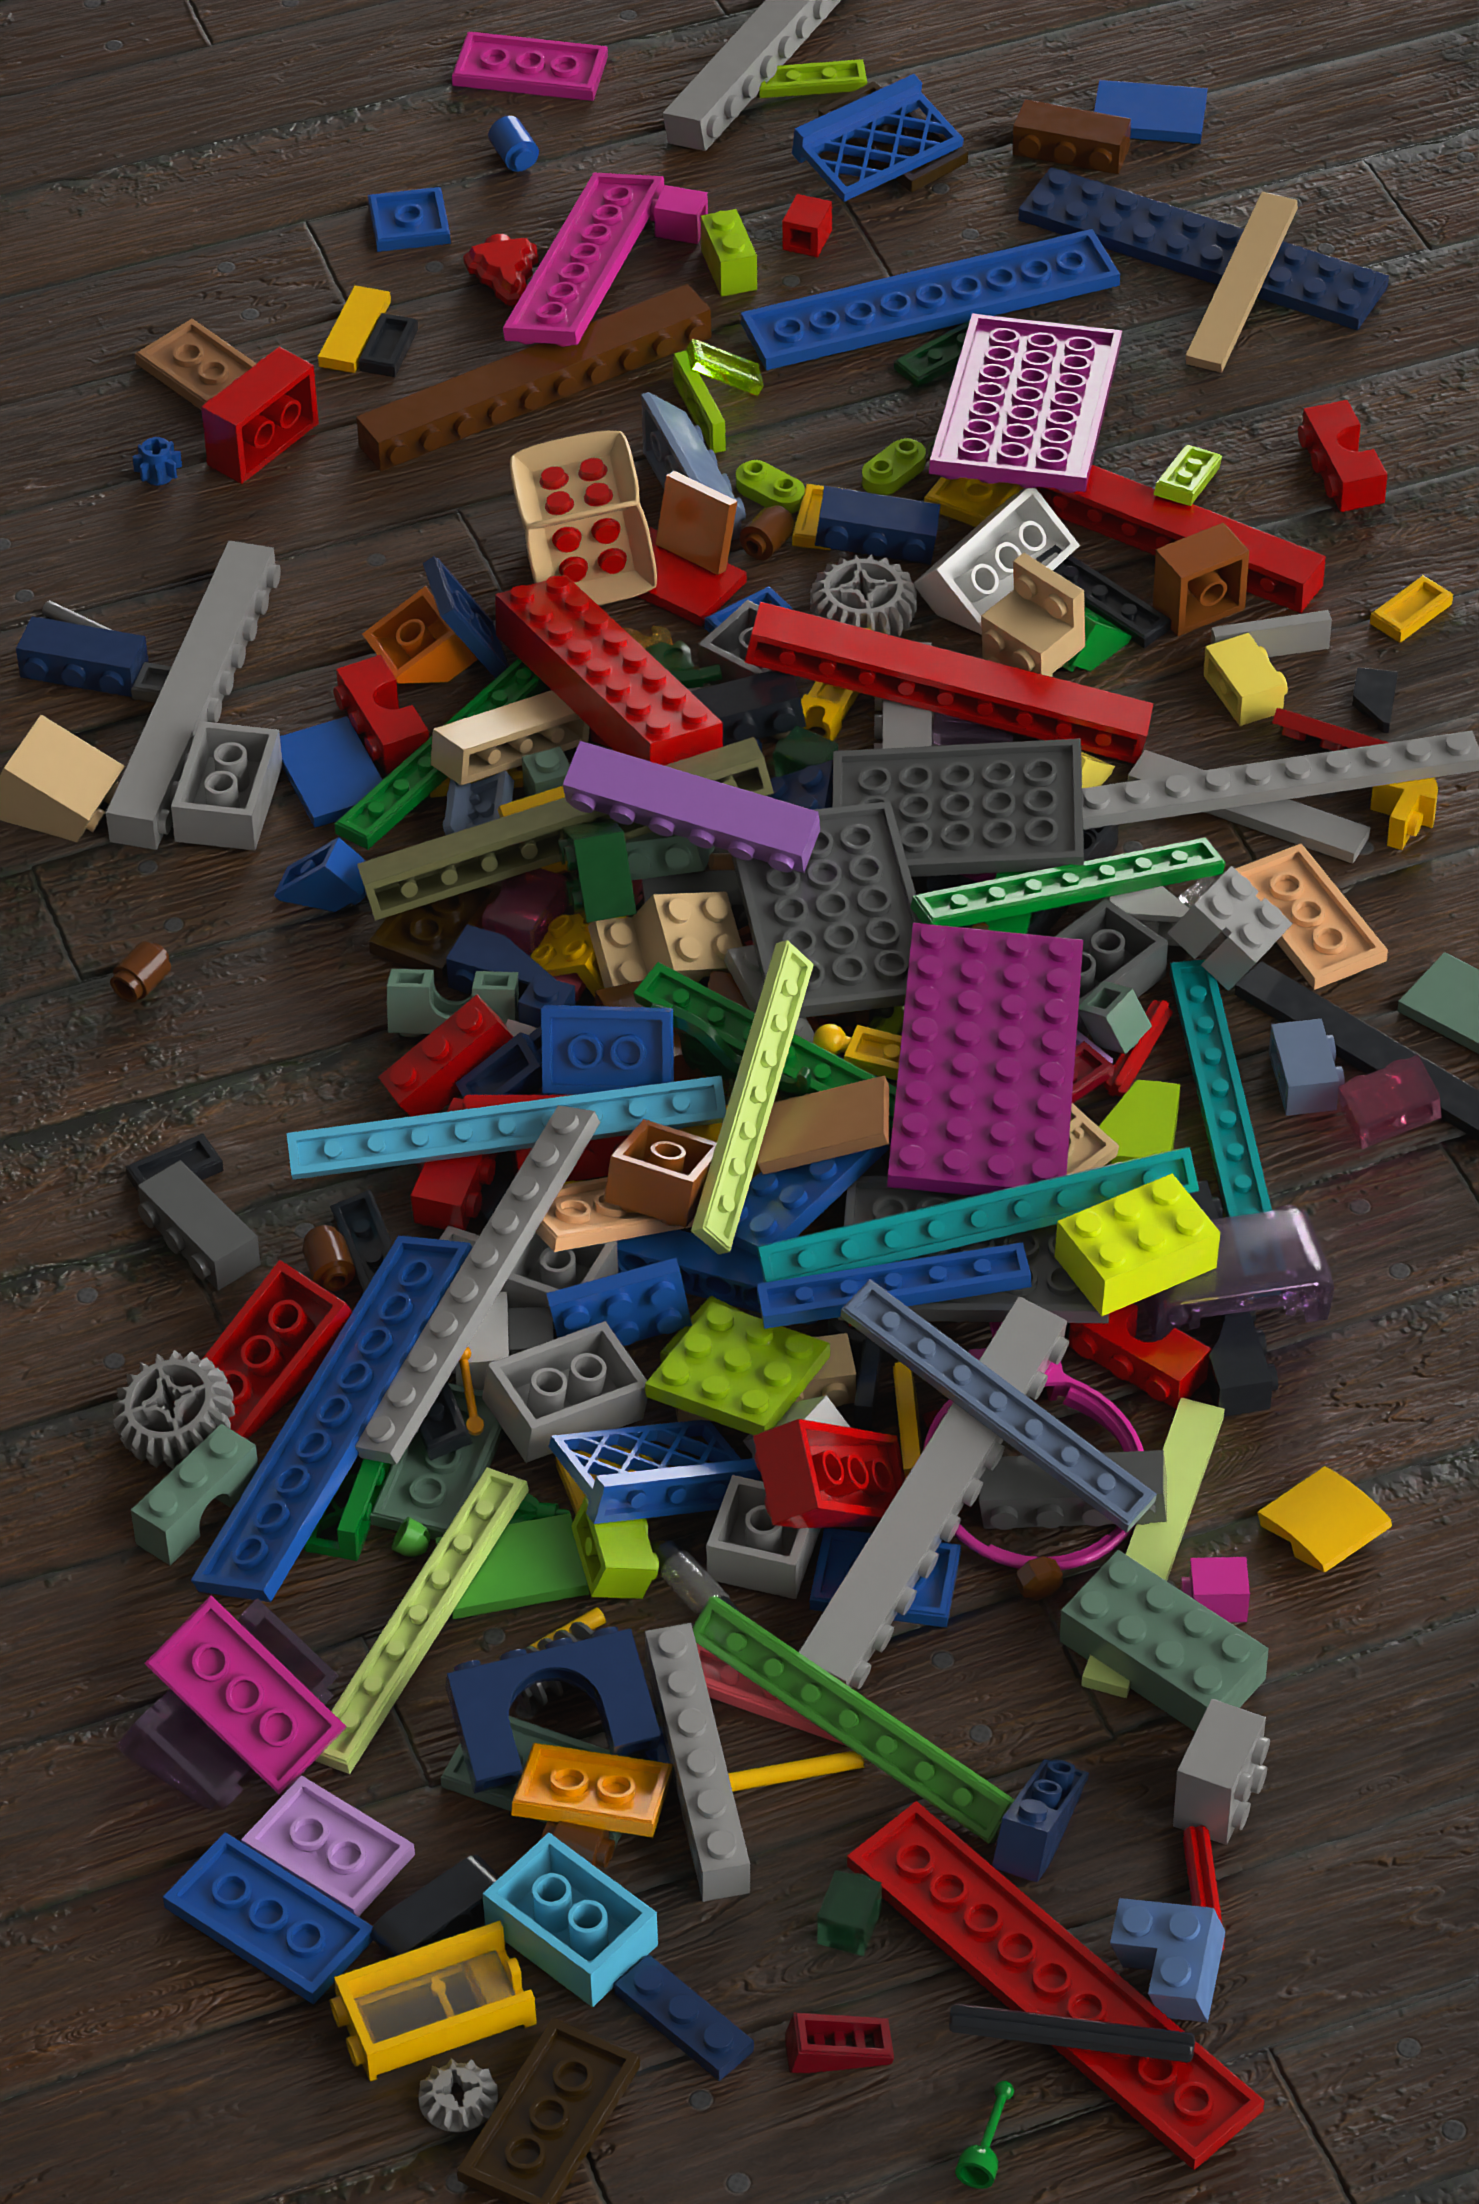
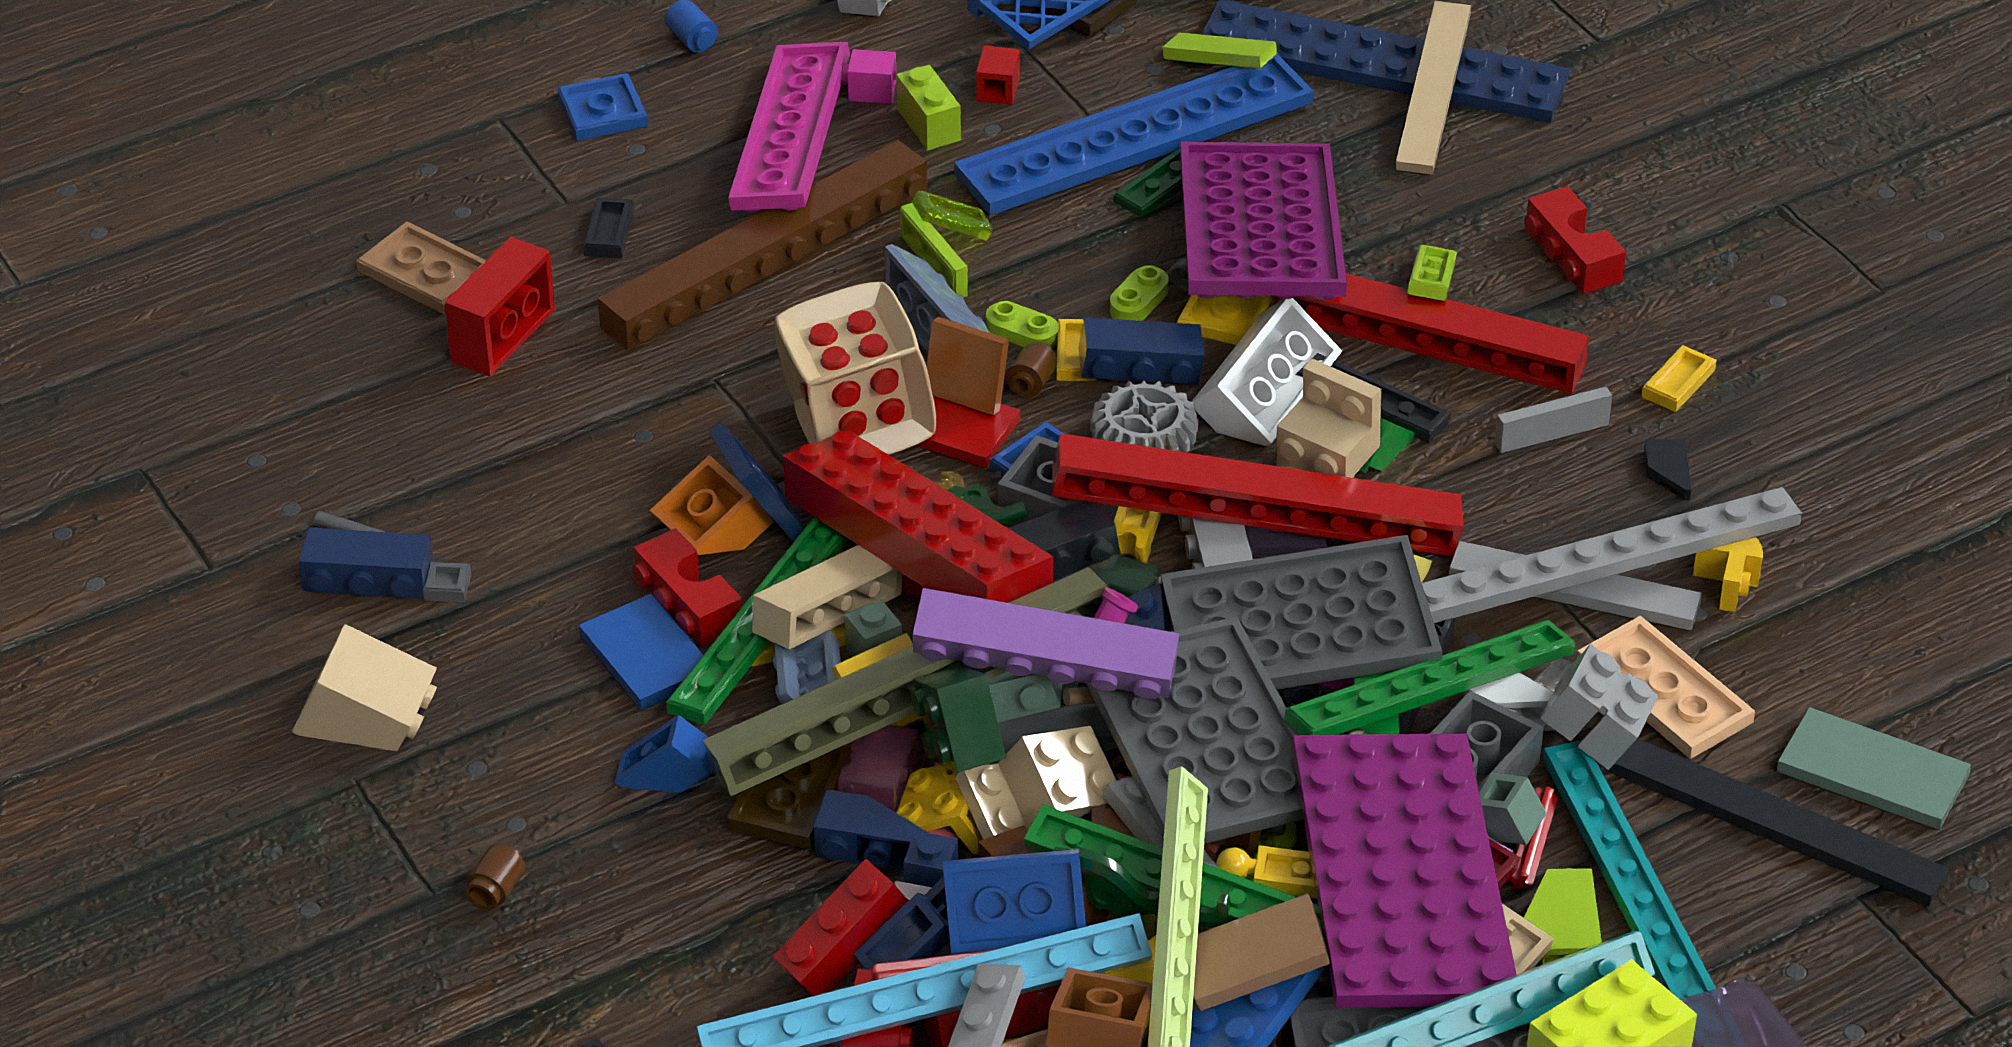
camera: 10 degrees left, 5 degrees down
(157, 461) = (402, 362): blue gear -> none
(192, 692) = (489, 592): light grey brick -> none
(227, 785) = (546, 676): light grey brick -> none
(353, 329) = (571, 215): yellow tile -> none
(418, 1008) = (796, 883): sand green arch -> none
(503, 265) = (708, 141): red rock -> none
(767, 779) = (1115, 607): none -> dark pink bush
(1036, 221) = (1219, 50): none -> lime tile
(1201, 578) = (1474, 369): dark orange brick -> none
(1244, 679) = (1539, 462): light yellow brick -> none
(1305, 1066) = (1705, 837): sand blue brick -> none
(1331, 736) = (1639, 508): red plate -> none
(1389, 1101) = (1801, 861): clear pink brick -> none

